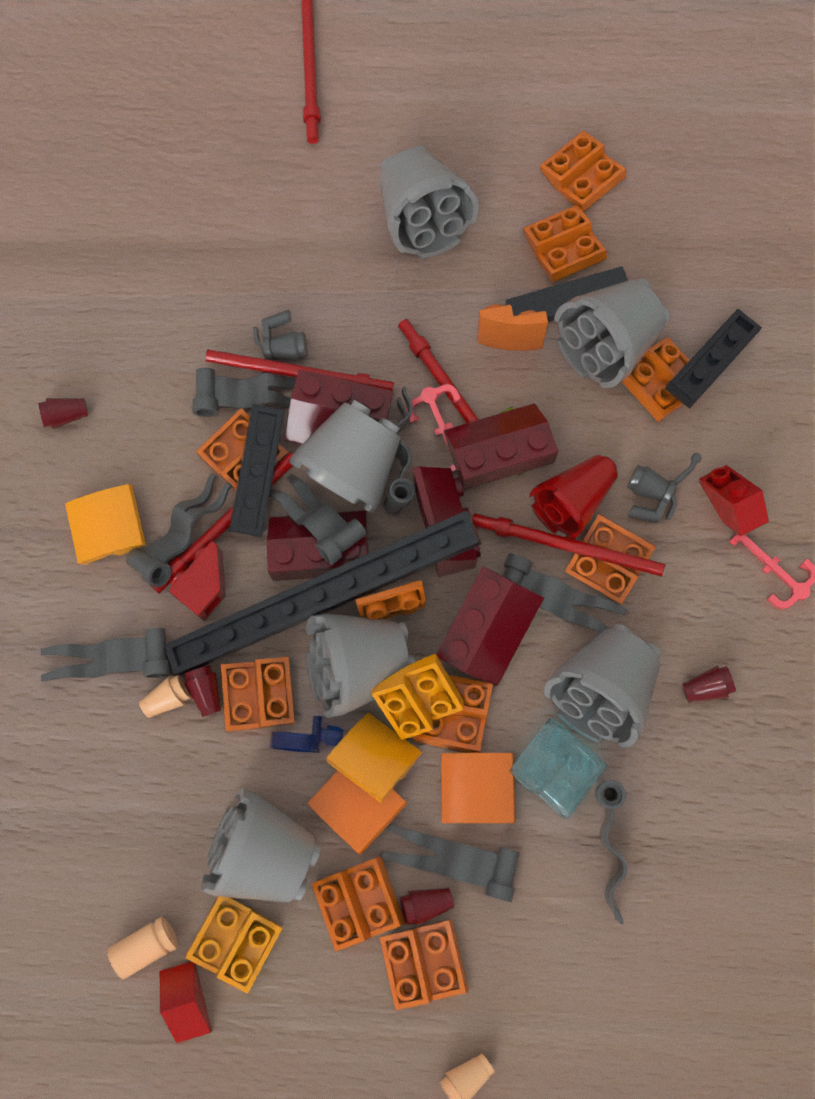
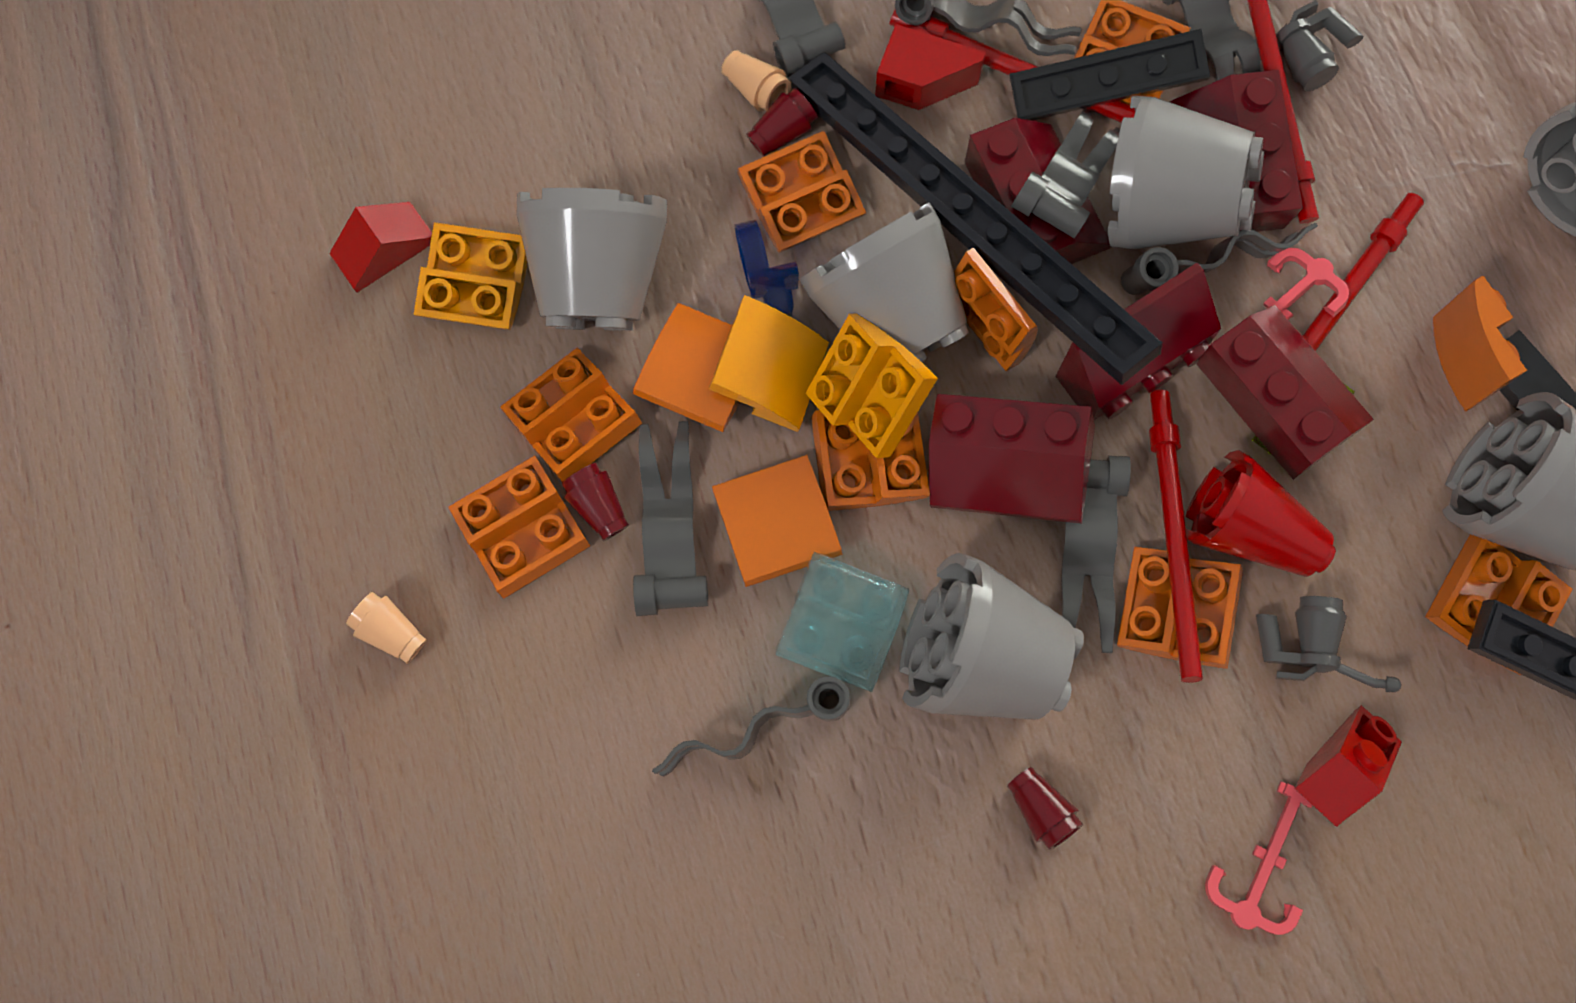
camera: 70 degrees right, 0 degrees up
(142, 948) = (430, 167): light nougat piece -> none

